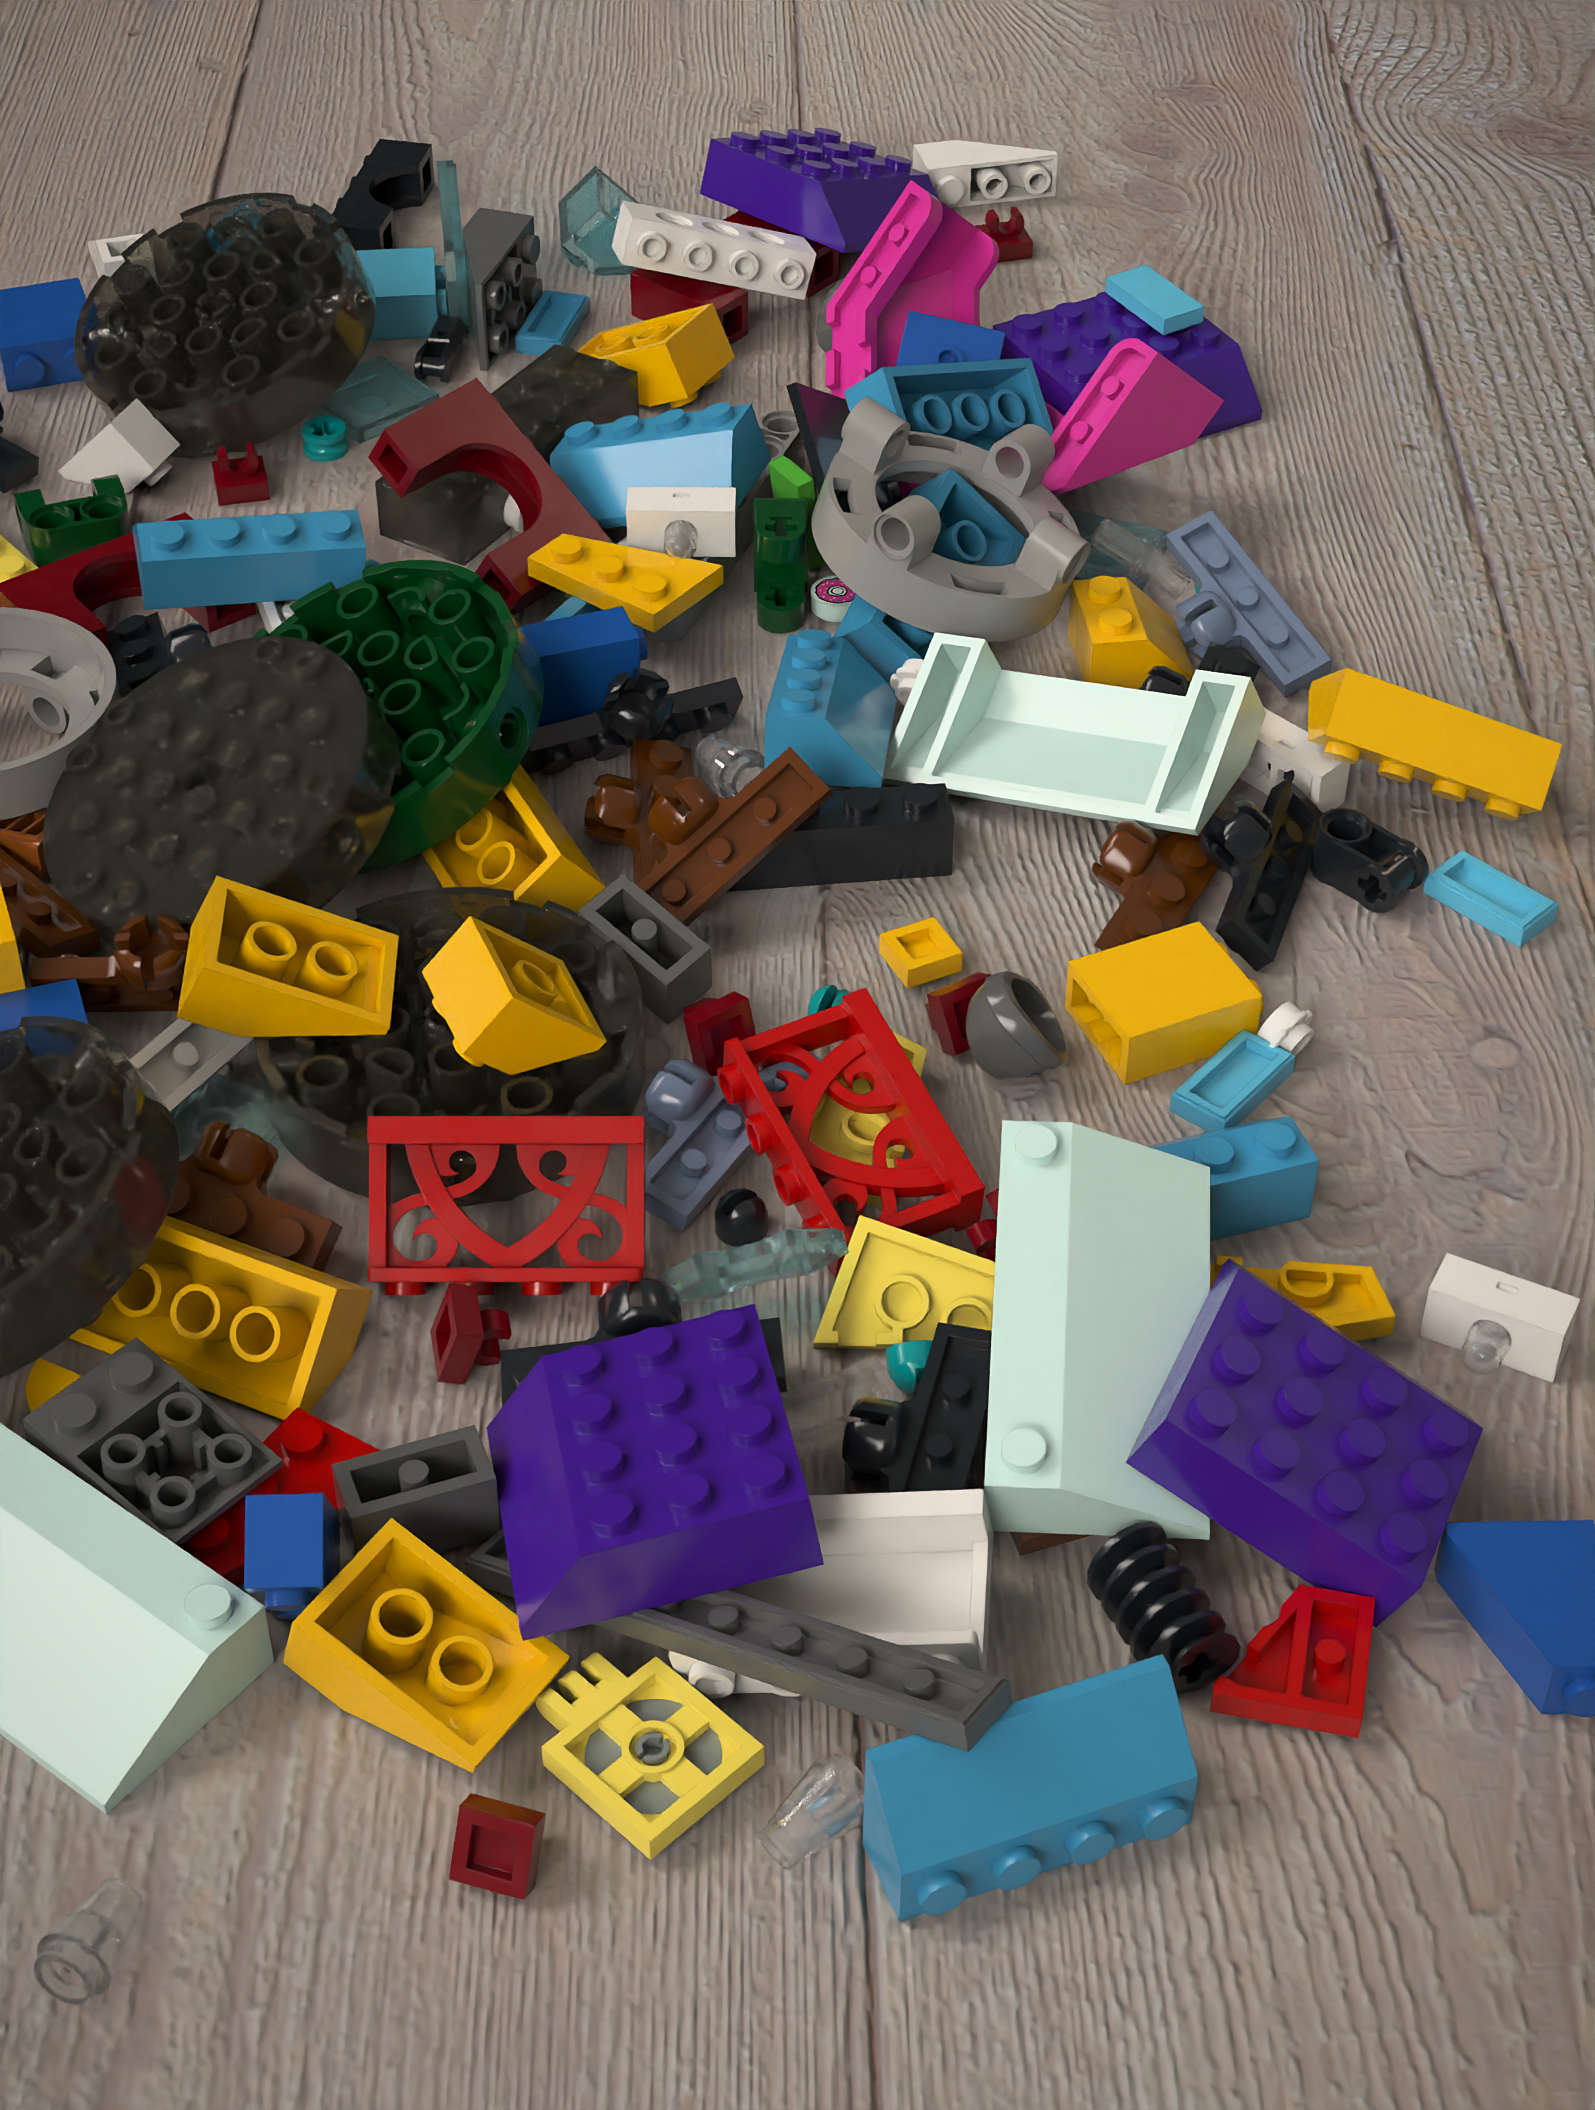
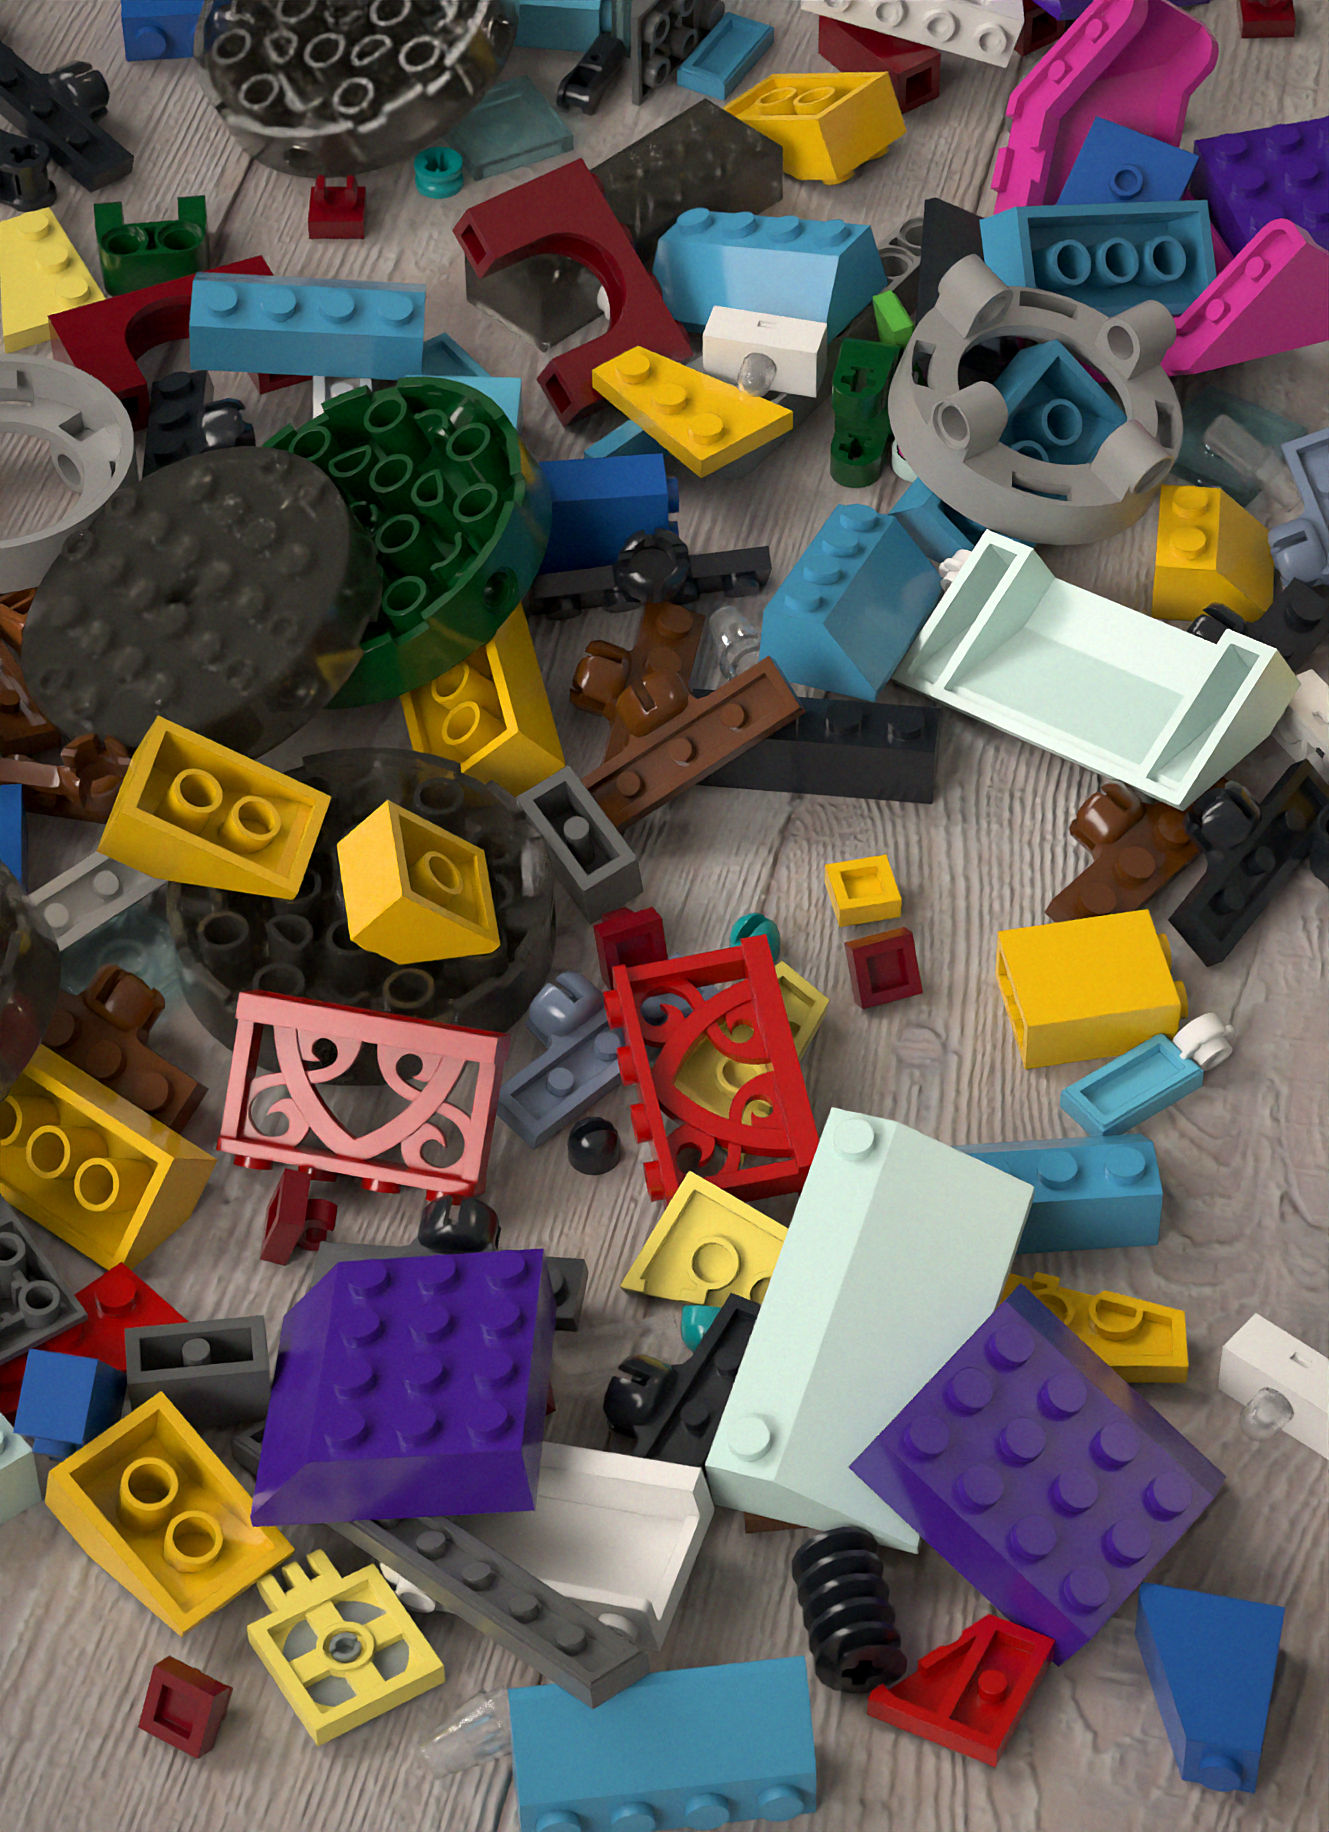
camera: 15 degrees right, 5 degrees up
(128, 446) = (222, 164): white slope -> none
(781, 1256) = (571, 1200): clear light blue tile -> none
(1013, 1028) = (923, 993): dark grey hat -> none

